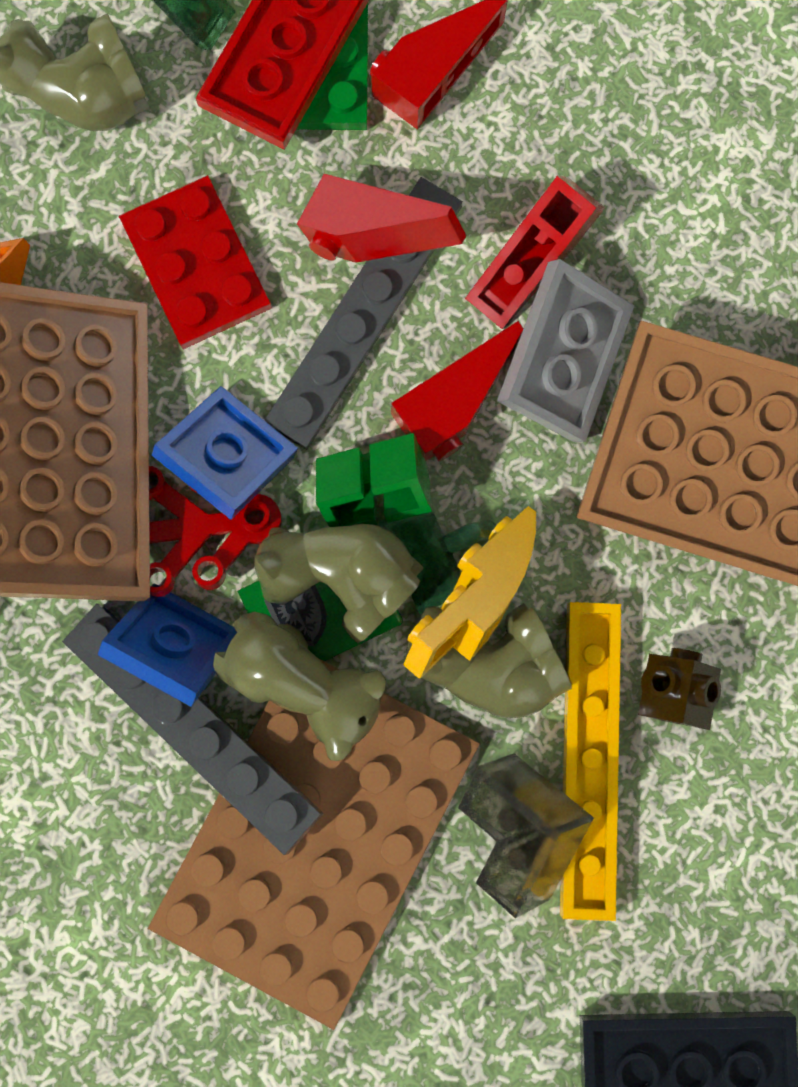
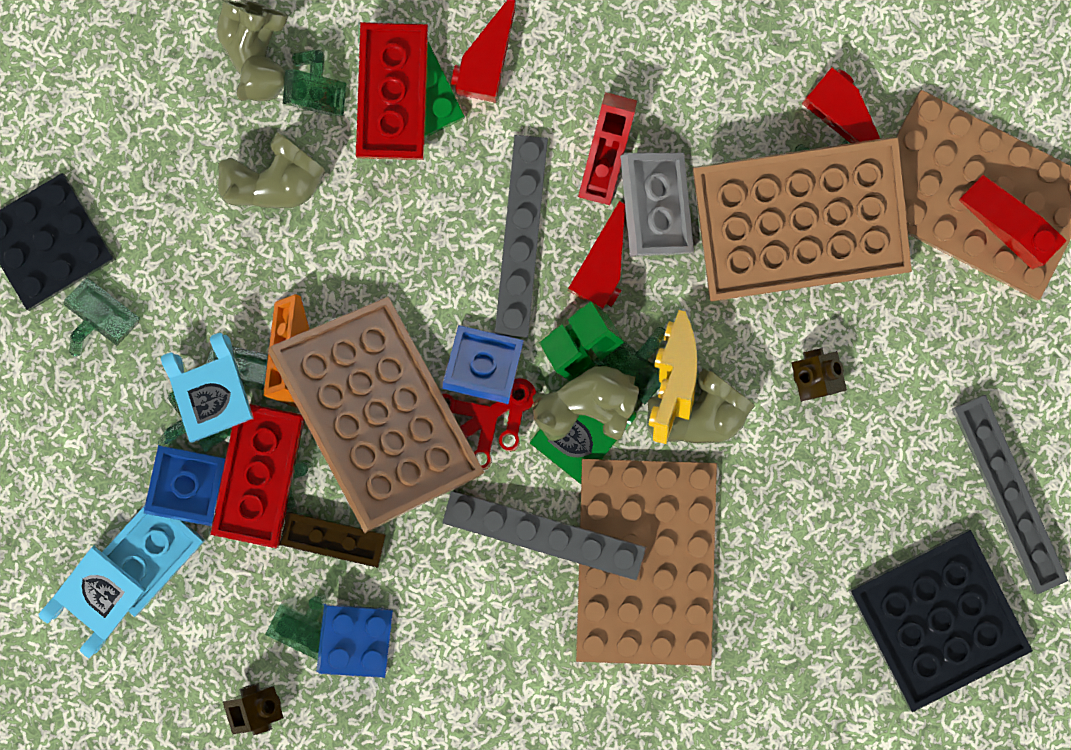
camera: 20 degrees left, 5 degrees up
(168, 645) = (510, 493): blue plate -> none
(195, 262) = (402, 255): red plate -> none
(276, 666) = (577, 476): olive animal -> none
(373, 222) = (501, 183): red slope -> none
(533, 832) = (771, 497): clear smoke brick -> none
(592, 756) = (786, 440): yellow plate -> none

